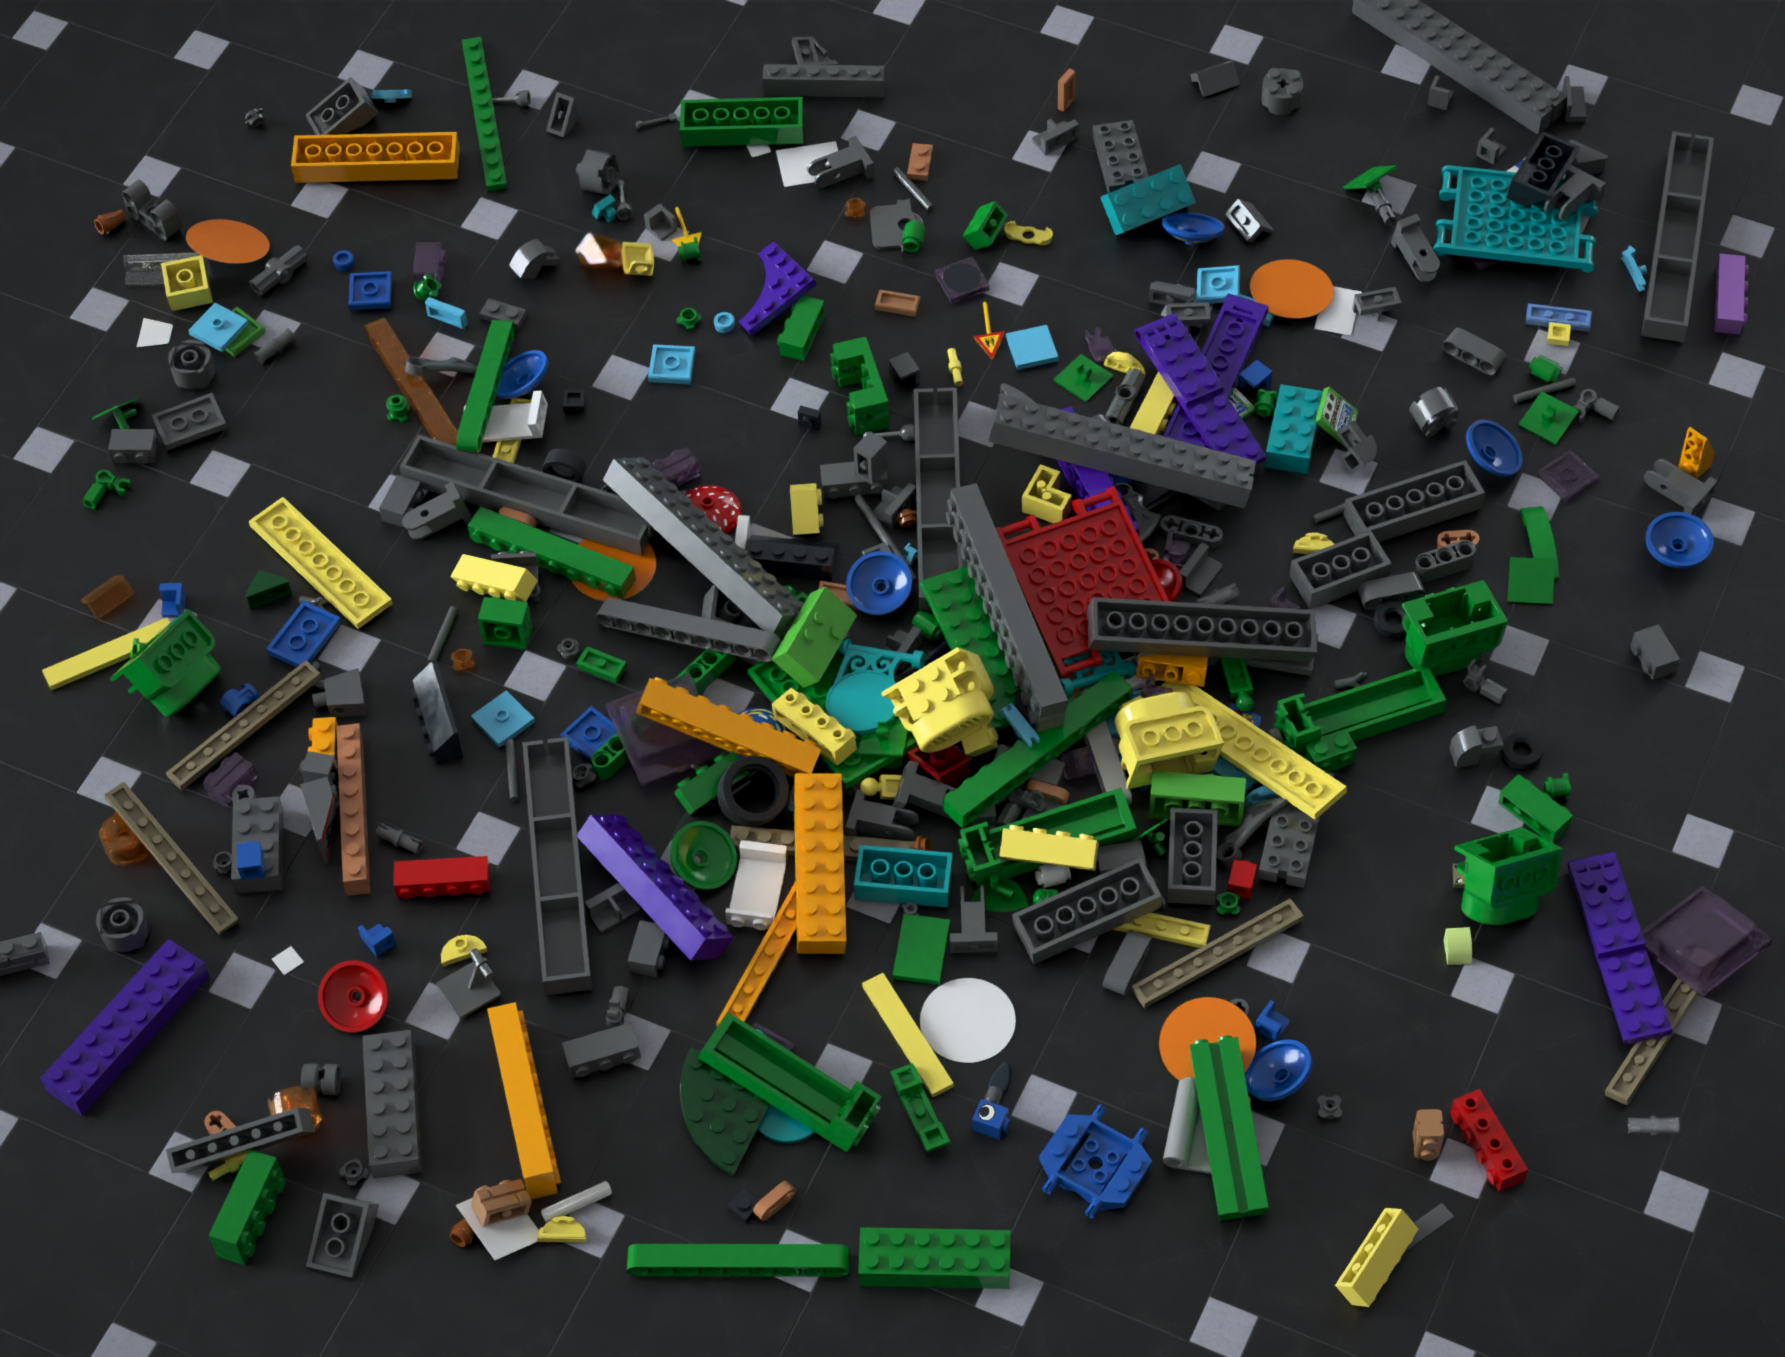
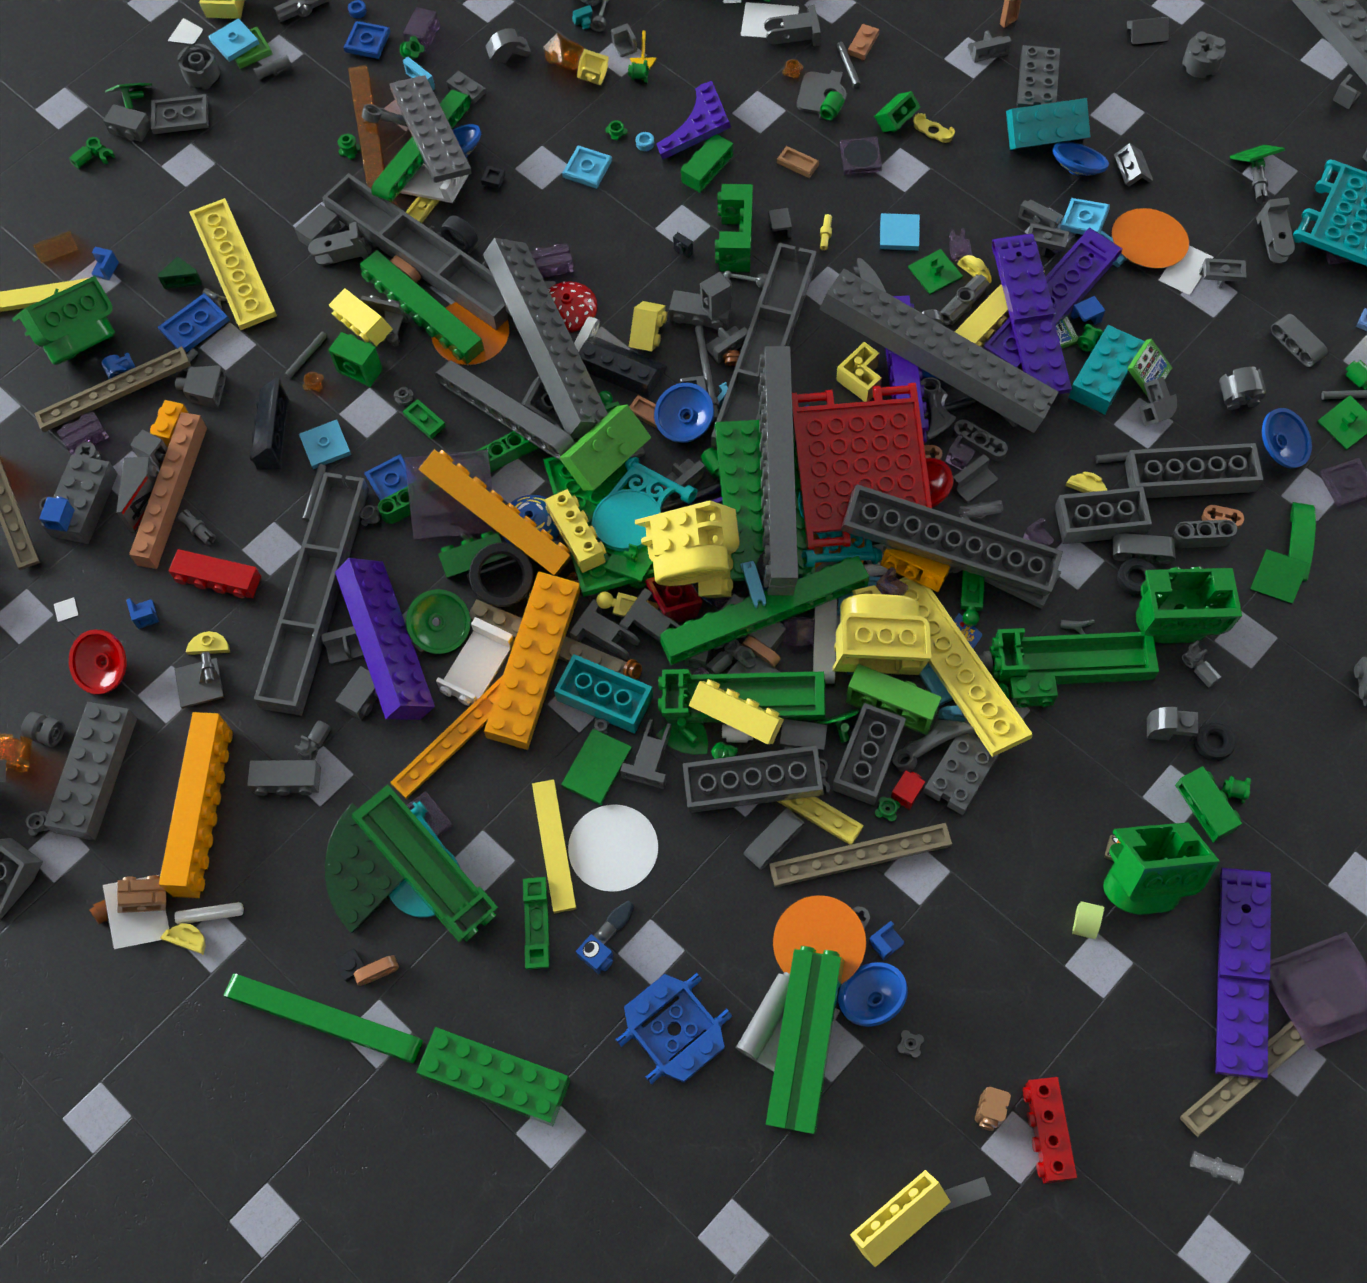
camera: 20 degrees right, 10 degrees up
(491, 365) = (430, 129): none -> flat silver plate
(989, 341) = (865, 216): piece -> none

